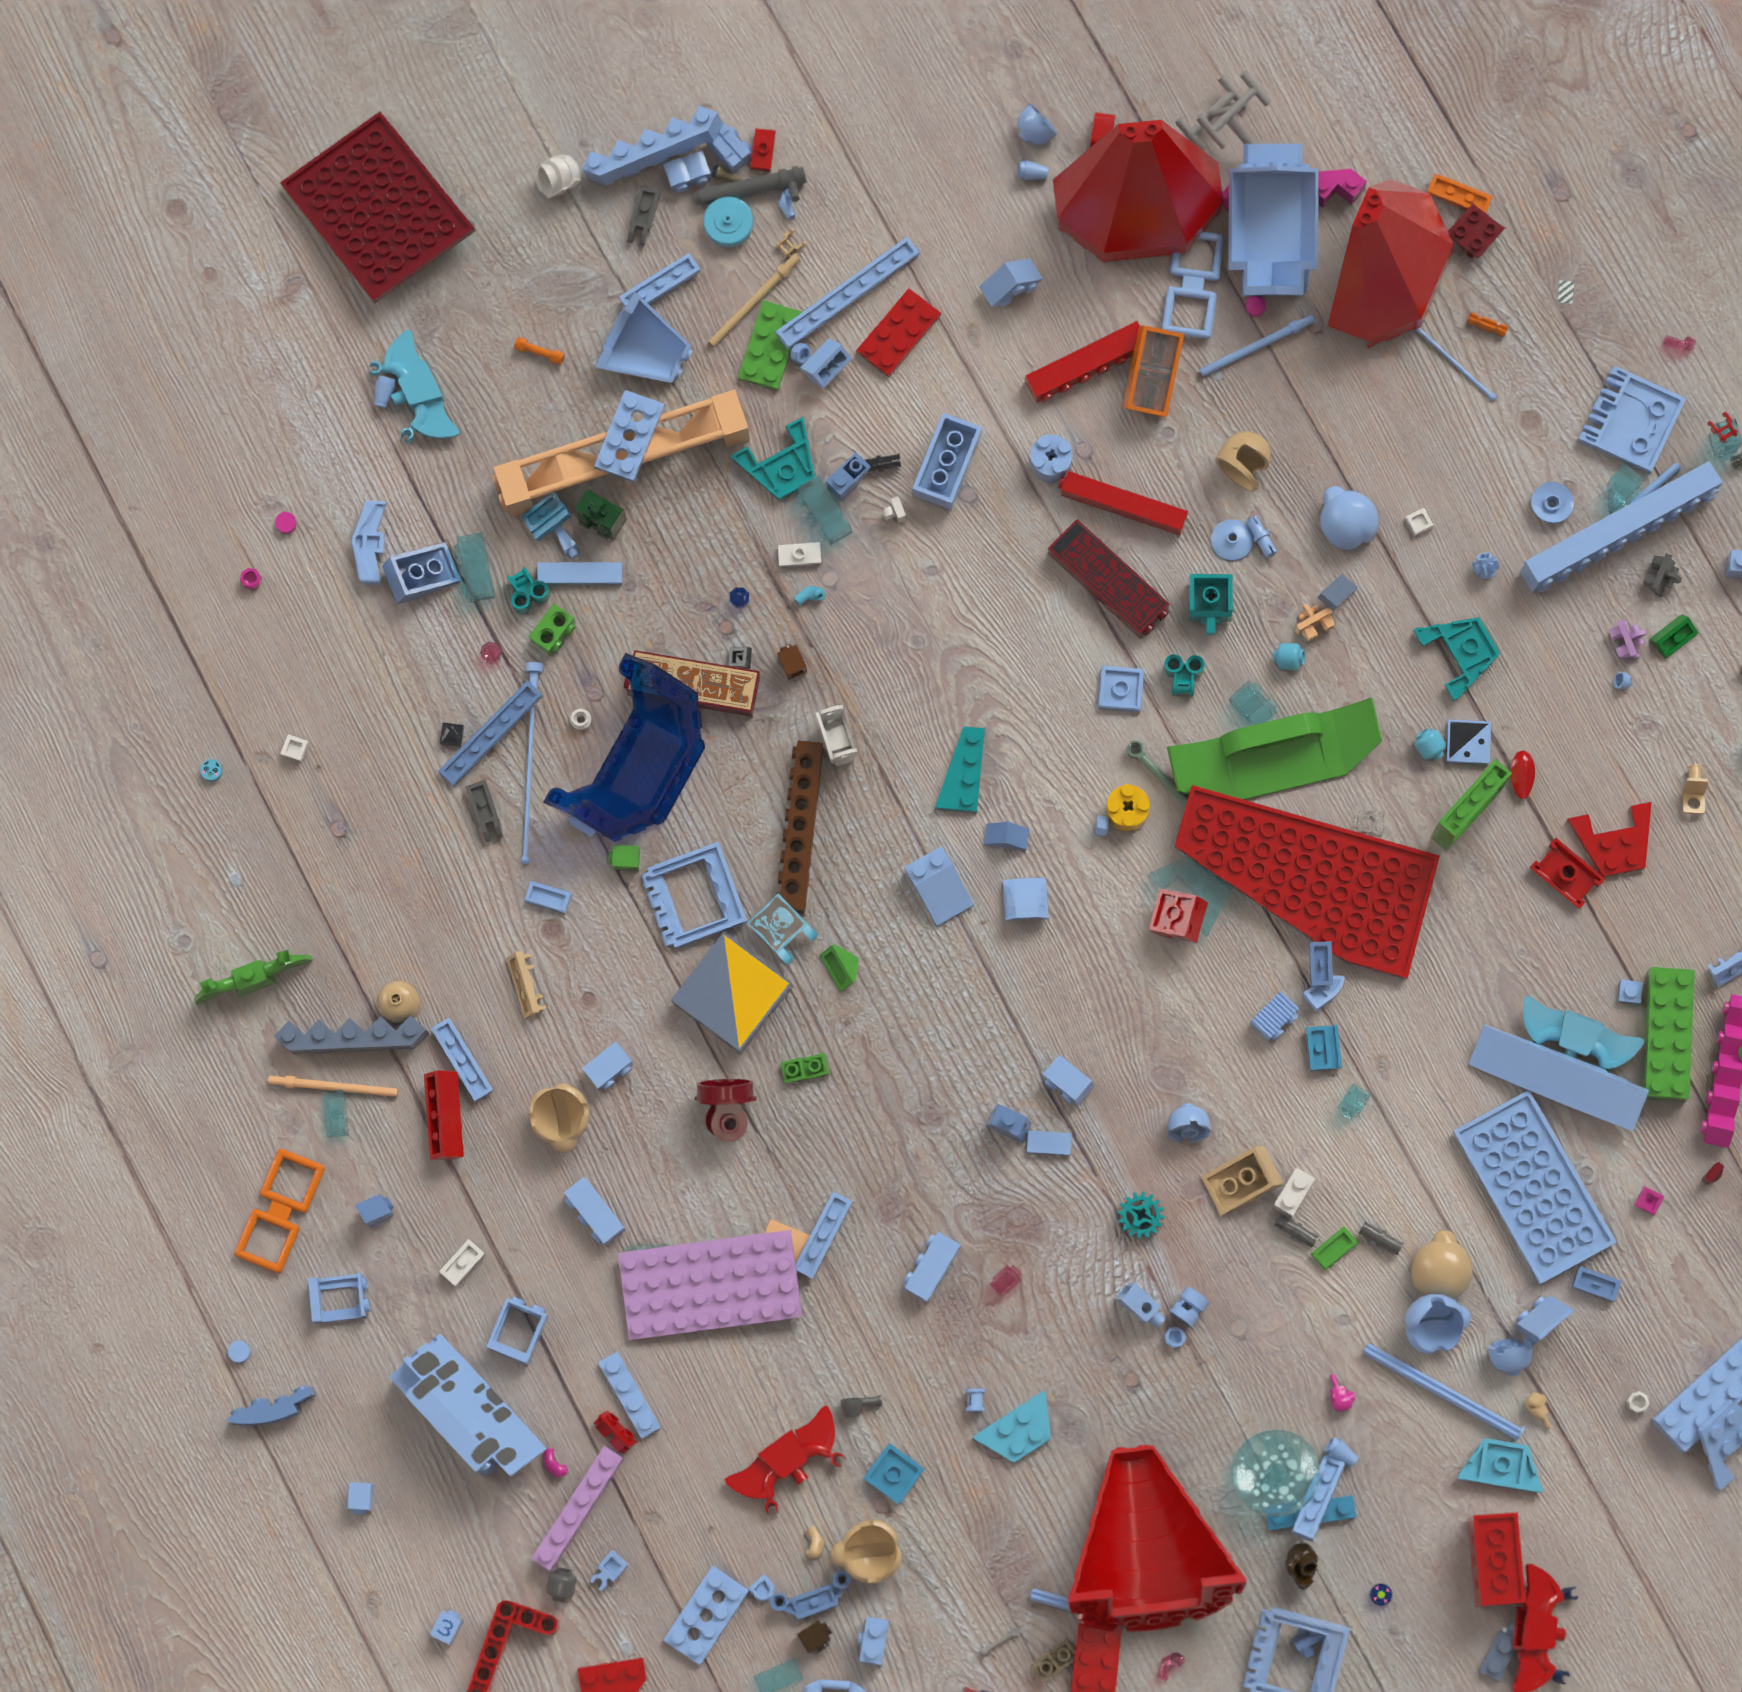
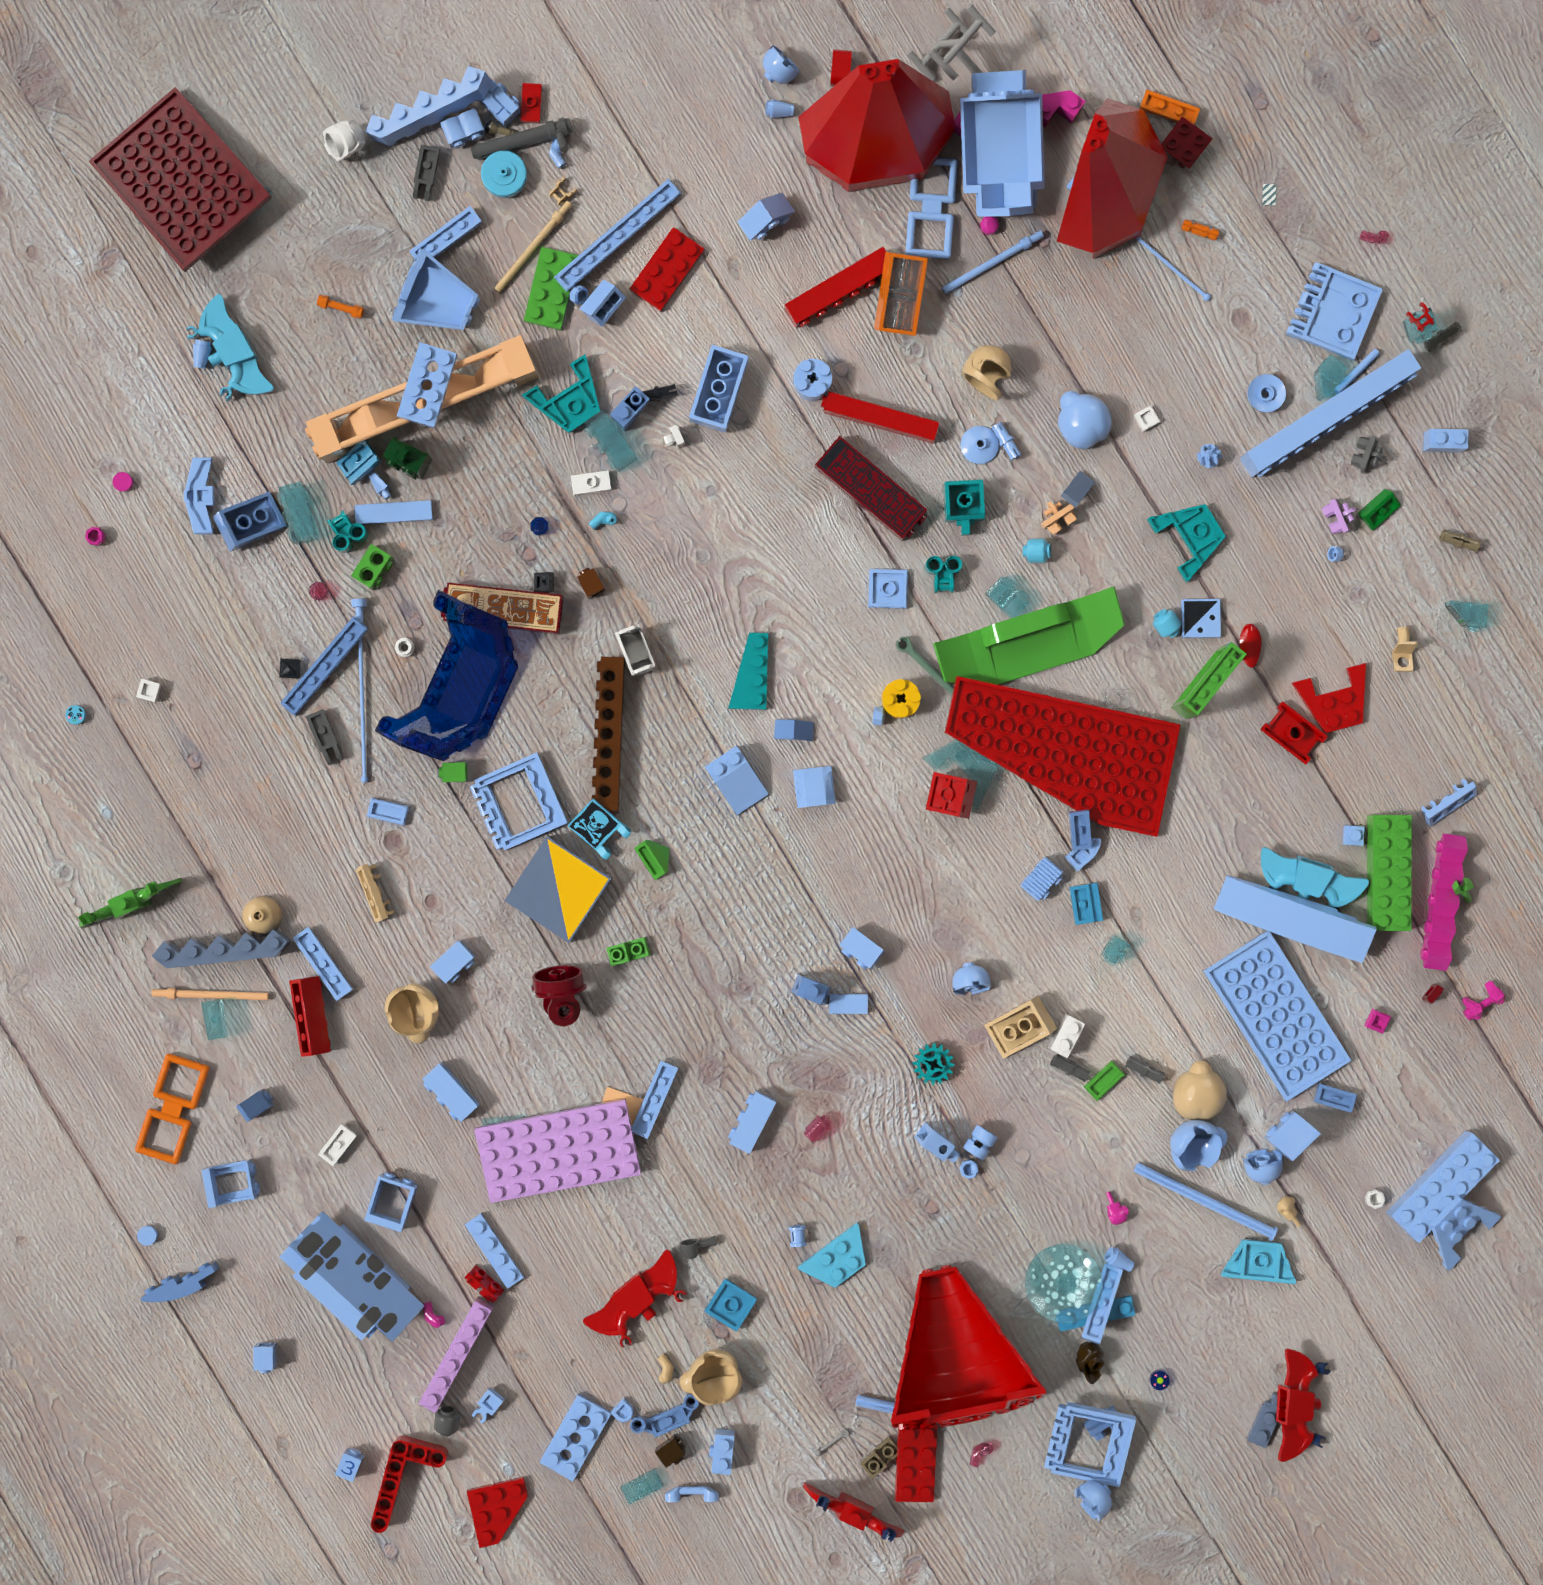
camera: 15 degrees left, 10 degrees up
(1496, 1559) = (1260, 1349): red piece -> none

